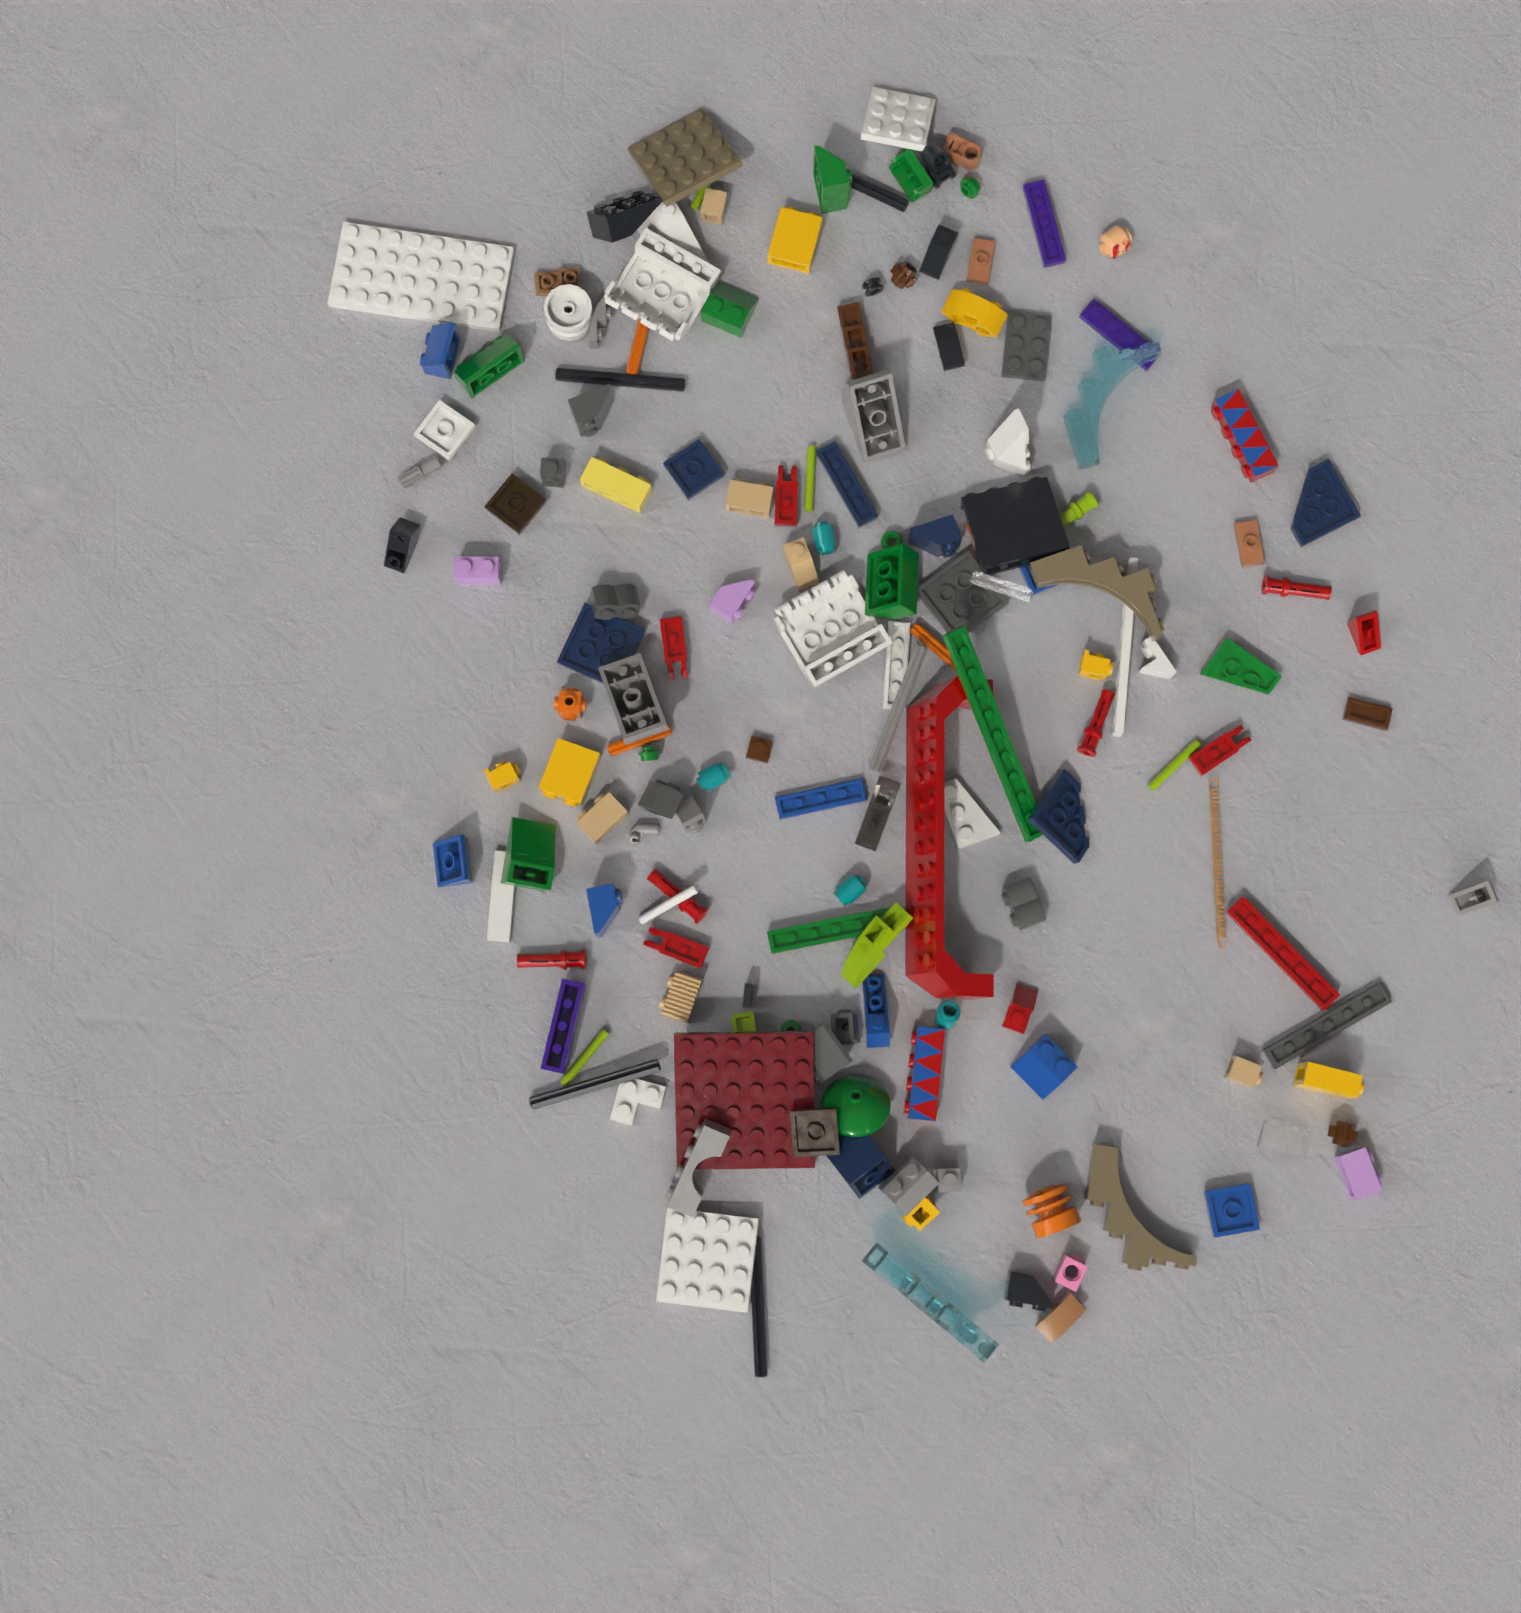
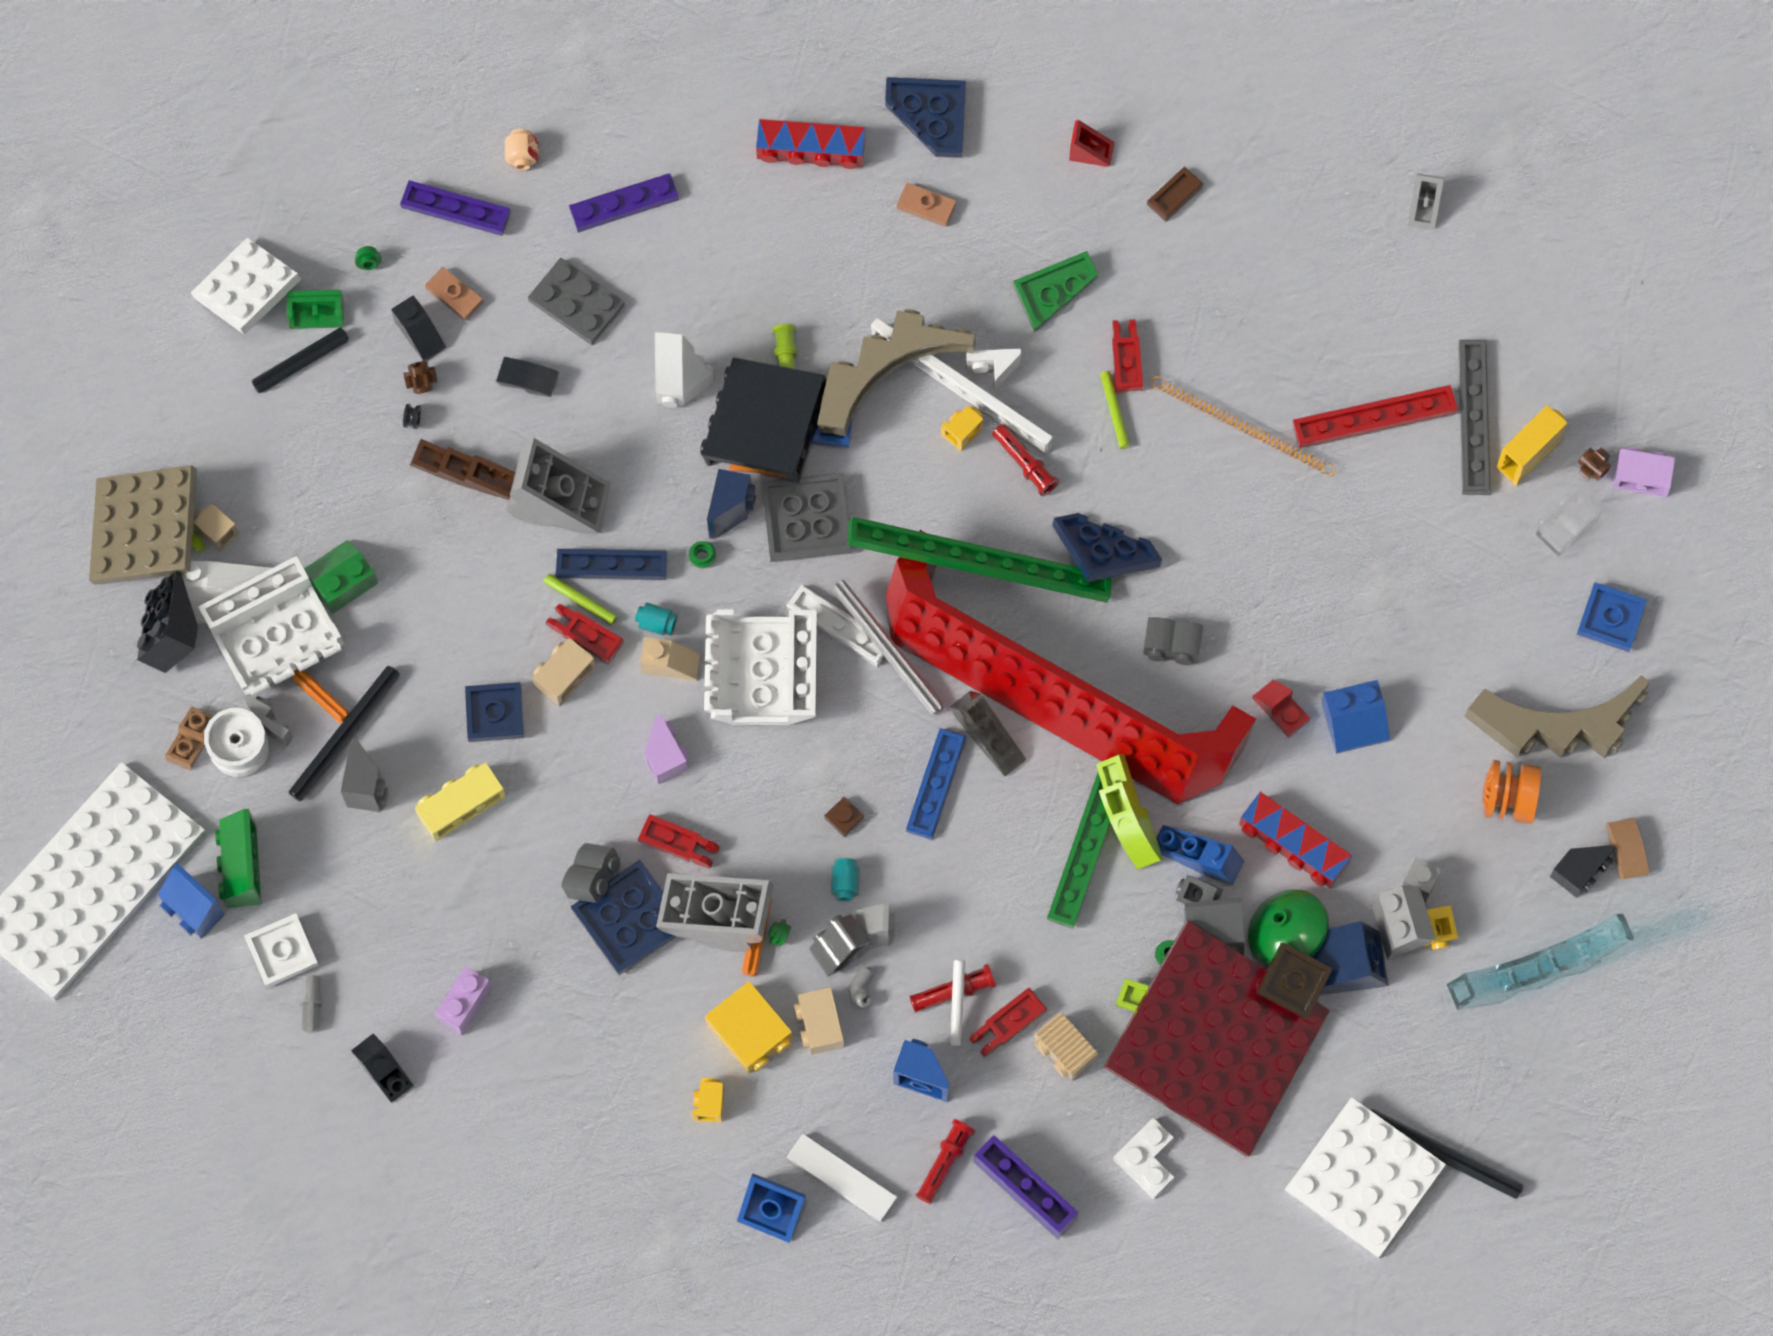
camera: 60 degrees left, 10 degrees down
(515, 504) = (413, 920): dark brown plate -> none
(530, 855) = (817, 1119): green slope -> none
(552, 472) = (403, 860): dark grey brick -> none
(573, 711) = (676, 992): orange brick -> none
(583, 1059) = (1071, 1188): lime bar -> none
(595, 1084) = (1107, 1190): black axle -> none
(709, 1142) = (1241, 1098): light grey arch -> none
(748, 995) = (1105, 976): pearl dark grey tile -> none
(795, 239) = (308, 465): yellow brick -> none
(831, 180) = (271, 389): green slope -> none
(850, 889) = (1053, 806): teal brick -> none
(892, 582) = (748, 577): green slope -> none
(932, 643) = (846, 572): orange axle -> none
(937, 165) = (323, 274): black piece -> none
(947, 1015) = (1246, 781): teal brick -> none
(959, 148) = (320, 245): nougat piece -> none
(965, 817) = (1054, 643): white wing -> none
(974, 312) = (508, 329): yellow brick -> none
(1001, 586) = (821, 469): clear axle -> none
(1060, 1276) = (1586, 824): bright pink brick -> none
(1093, 393) = (699, 292): clear light blue arch -> none
(1244, 1072) = (1475, 523): tan brick -> none
(1284, 587) = (995, 195): red pin -> none

